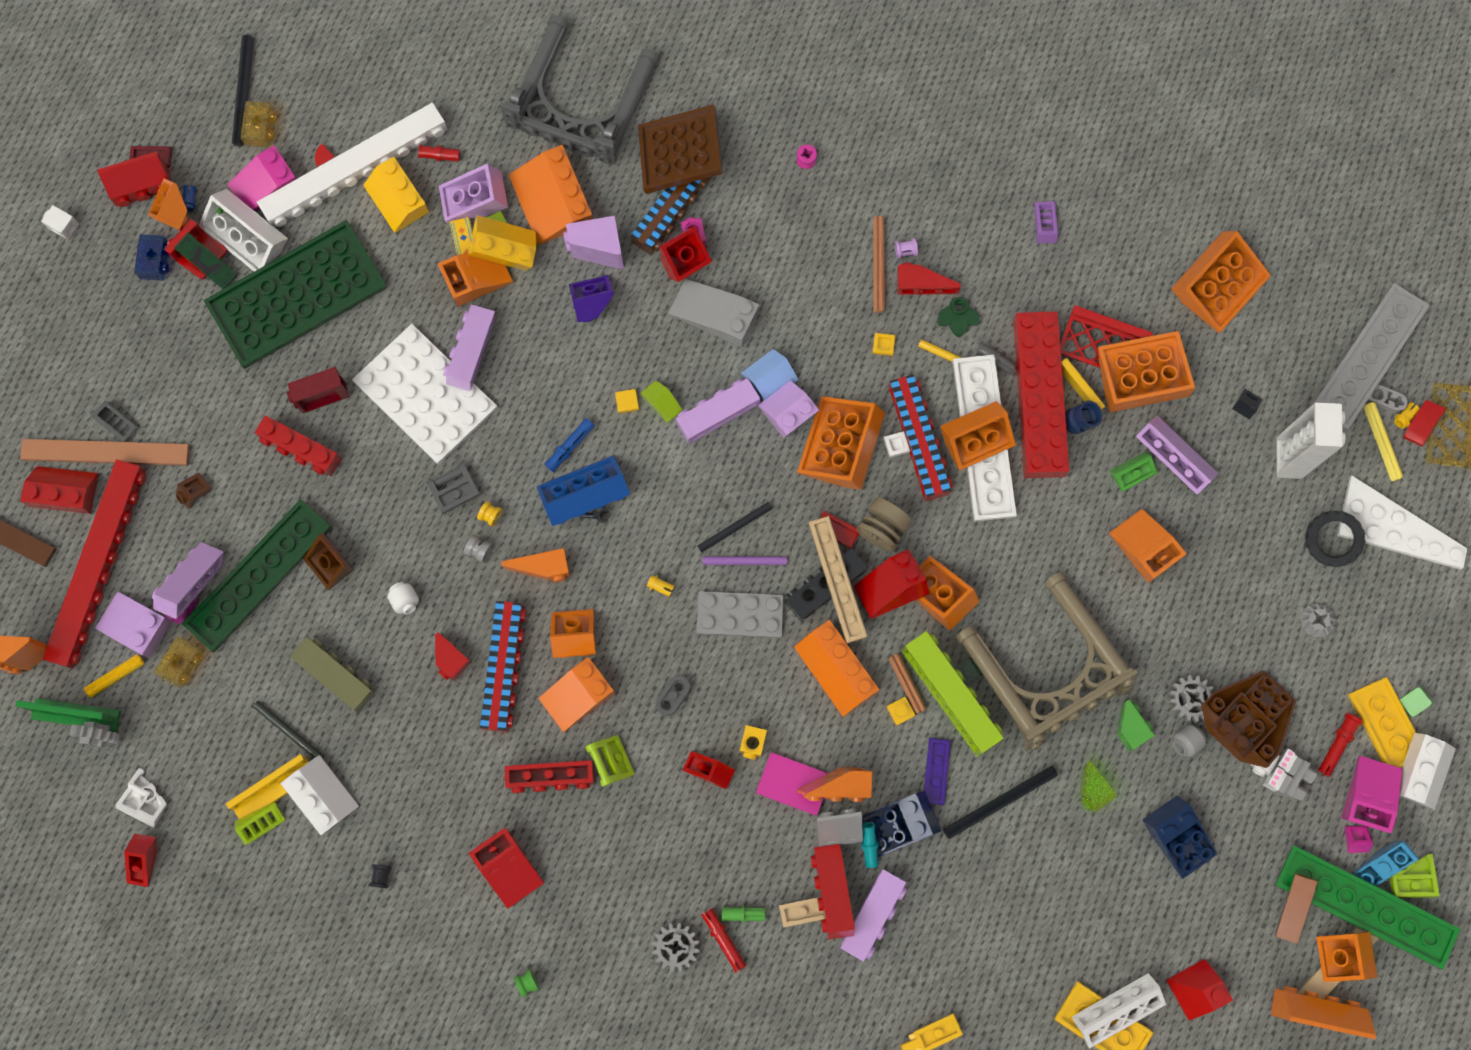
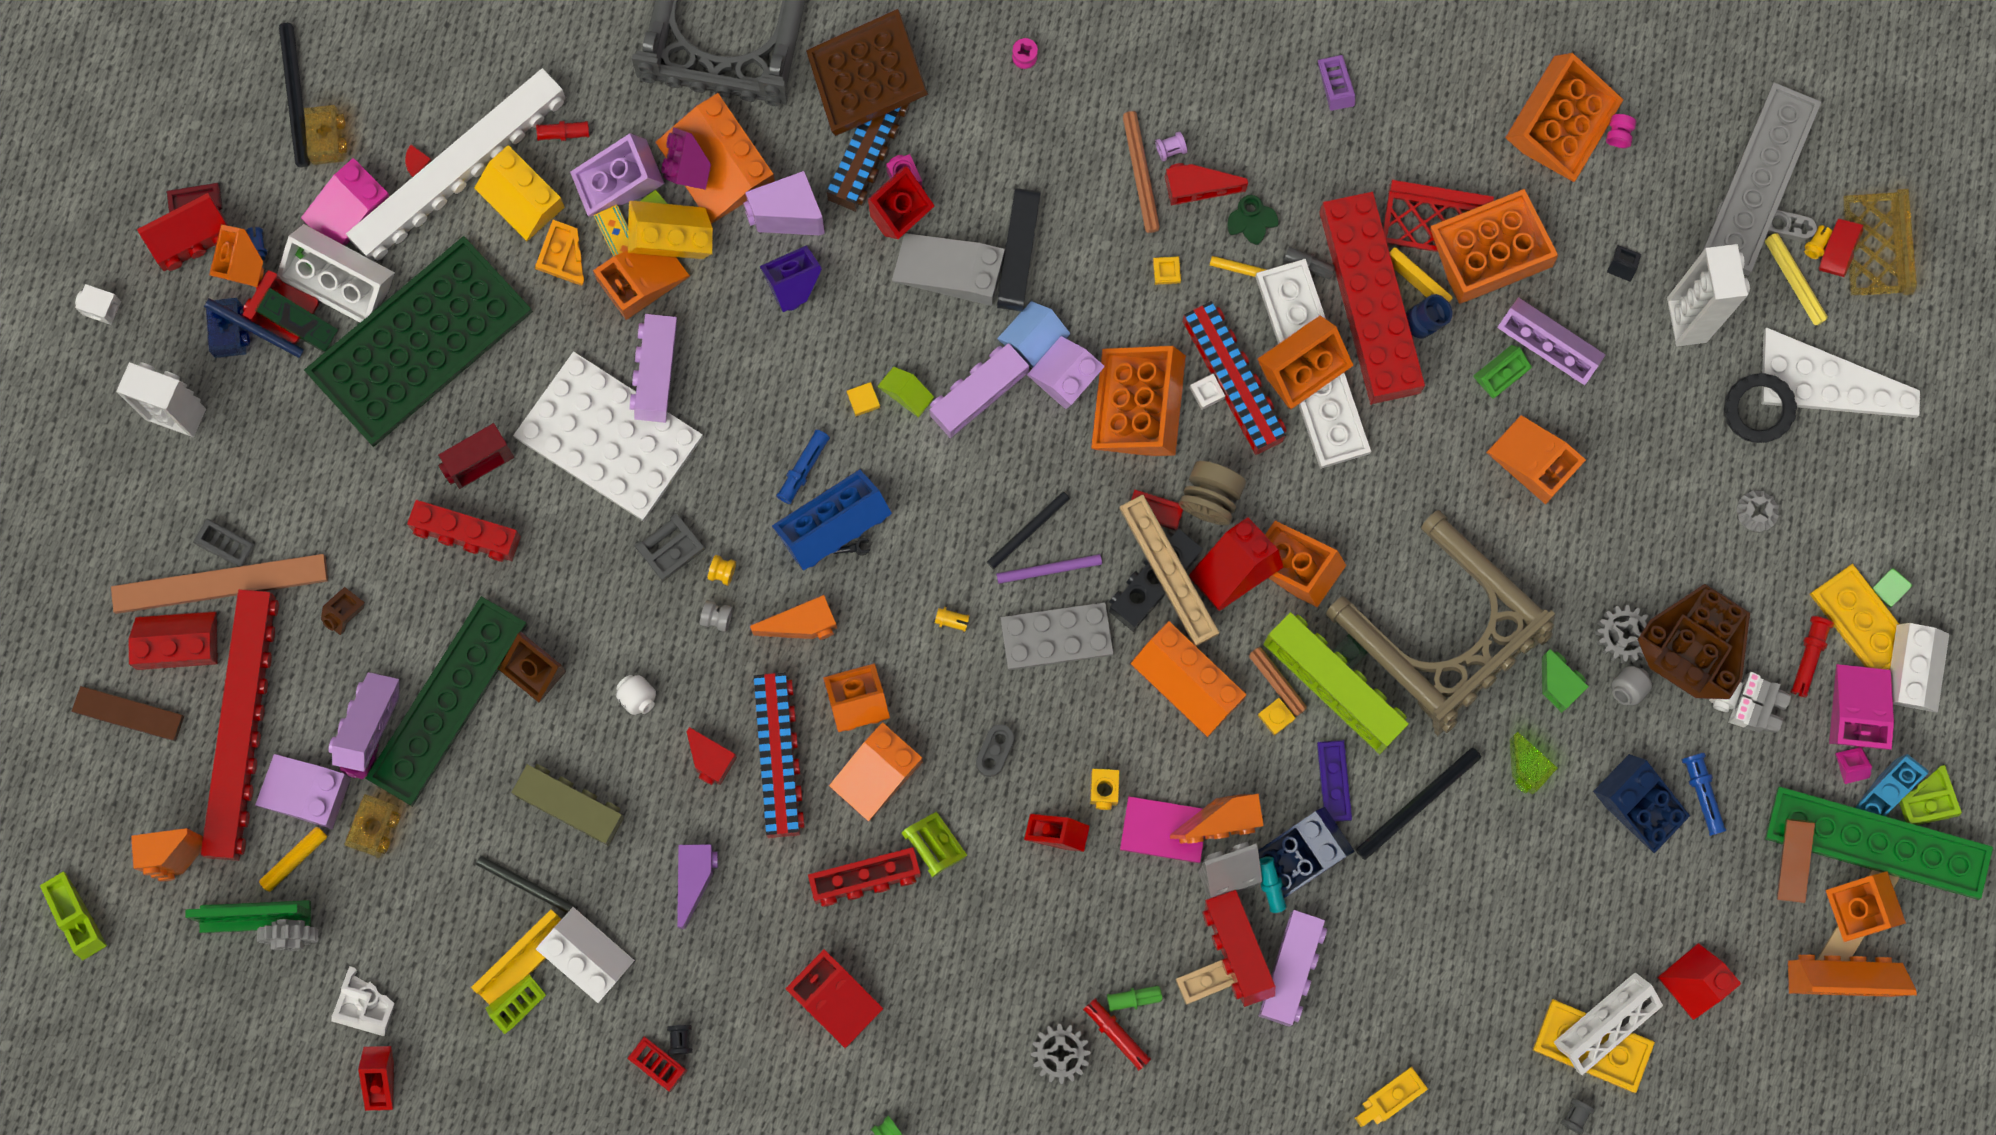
camera: 15 degrees left, 0 degrees up
(87, 301) = (161, 398): none -> white brick
(171, 261) = (253, 328): none -> dark blue bar
(375, 900) = (673, 1079): none -> red slope
(418, 247) = (561, 253): none -> light orange wing
(418, 747) = (694, 874): none -> medium lavender slope
(527, 192) = (685, 161): none -> magenta slope
(770, 307) = (1018, 249): none -> black beam
(1235, 866) = (1714, 825): none -> blue pin
(1264, 299) = (1621, 130): none -> dark pink wheel

